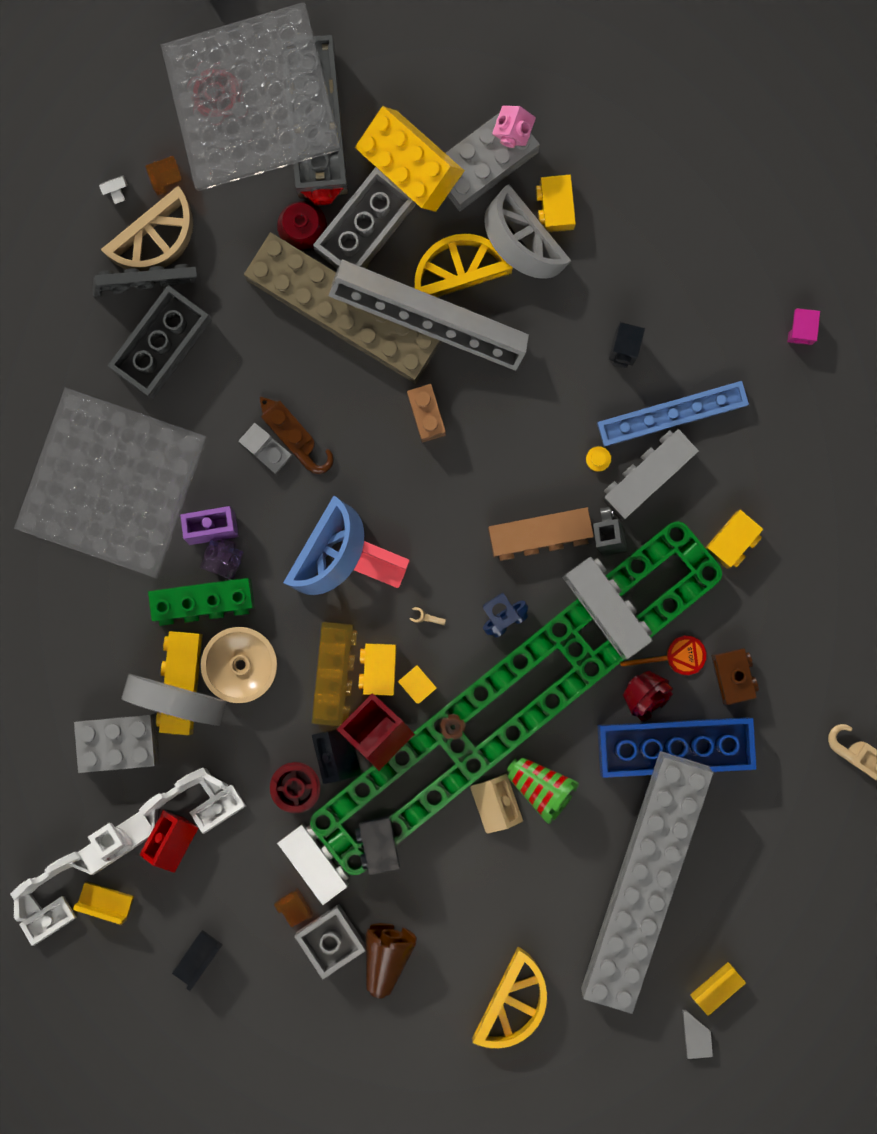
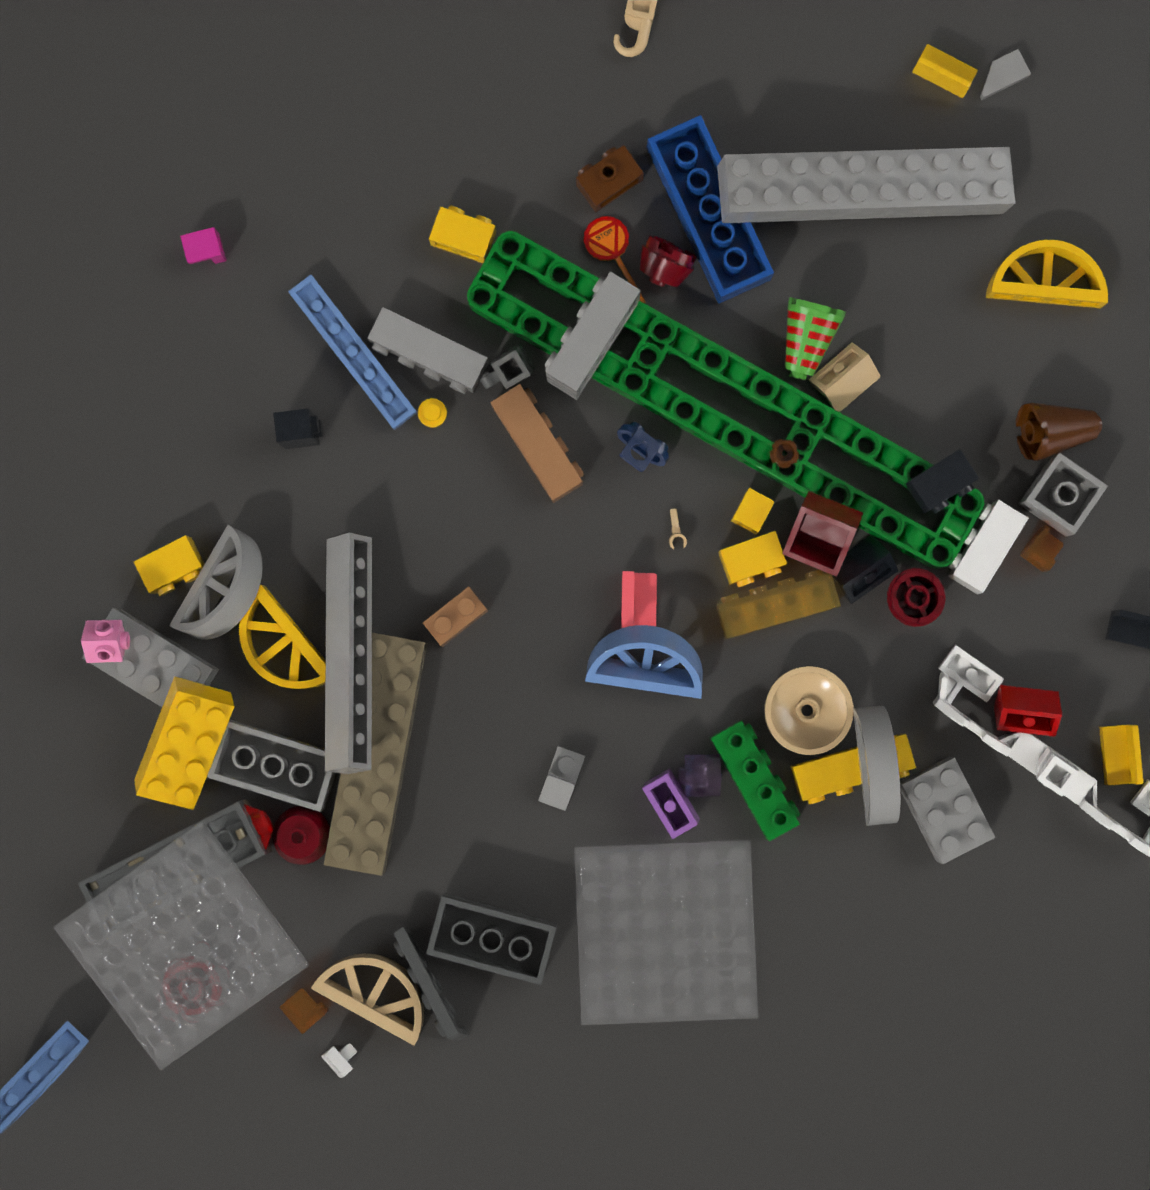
camera: 110 degrees left, 0 degrees up
(293, 434) = (535, 753): reddish brown plate -> none

